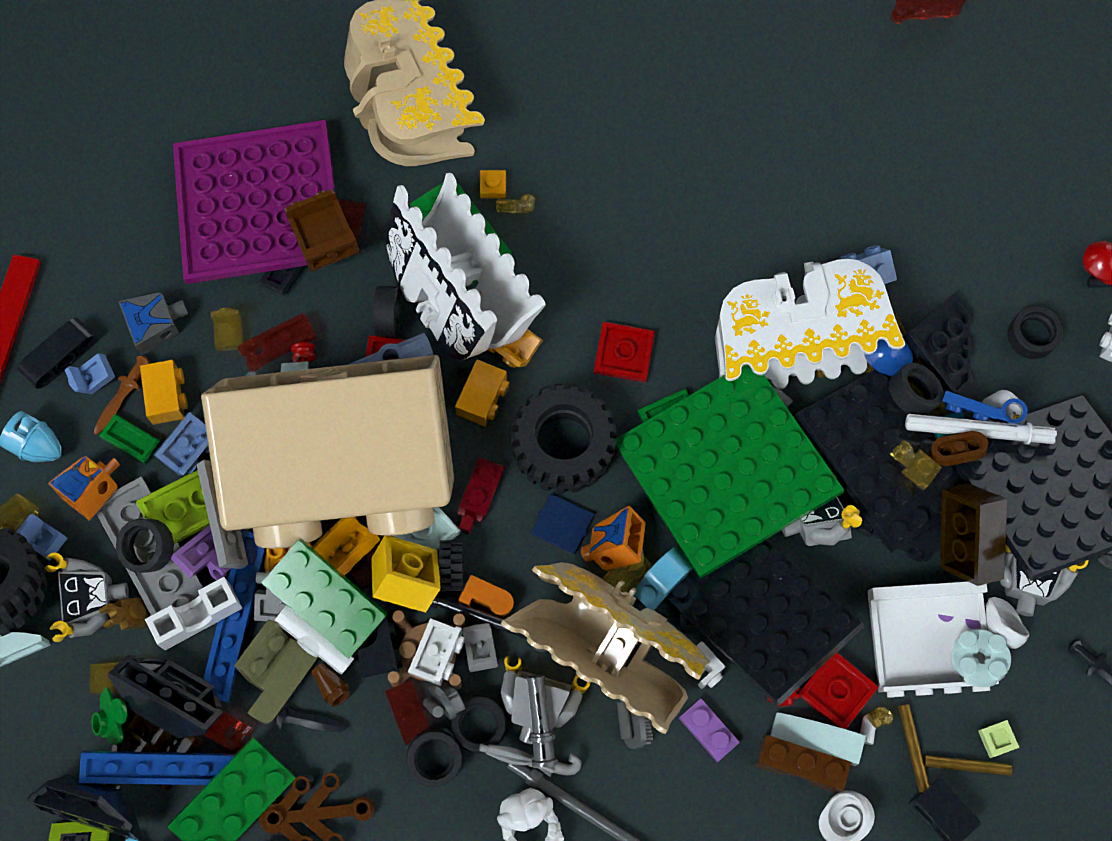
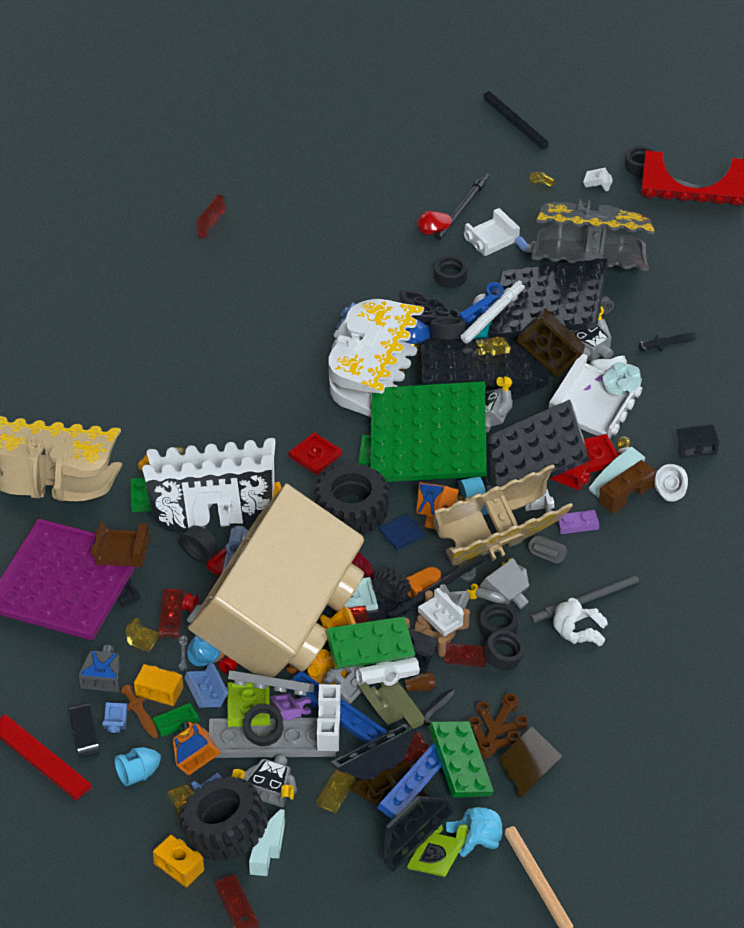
camera: 55 degrees left, 25 degrees down
(110, 717) = (362, 794): green plate -> none
(127, 612) = (299, 761): pearl gold plate -> none
(405, 573) = (383, 600): yellow brick -> none
(444, 700) = (473, 626): dark grey piece -> none
(518, 757) = (546, 601): light grey piece -> none
(538, 737) = (529, 585): dark grey pin -> none
(914, 747) = (651, 439): pearl gold bar -> none
(958, 448) = (498, 323): reddish brown plate -> none
(968, 765) = (676, 422): pearl gold bar -> none
(998, 739) = (671, 400): yellowish green plate -> none

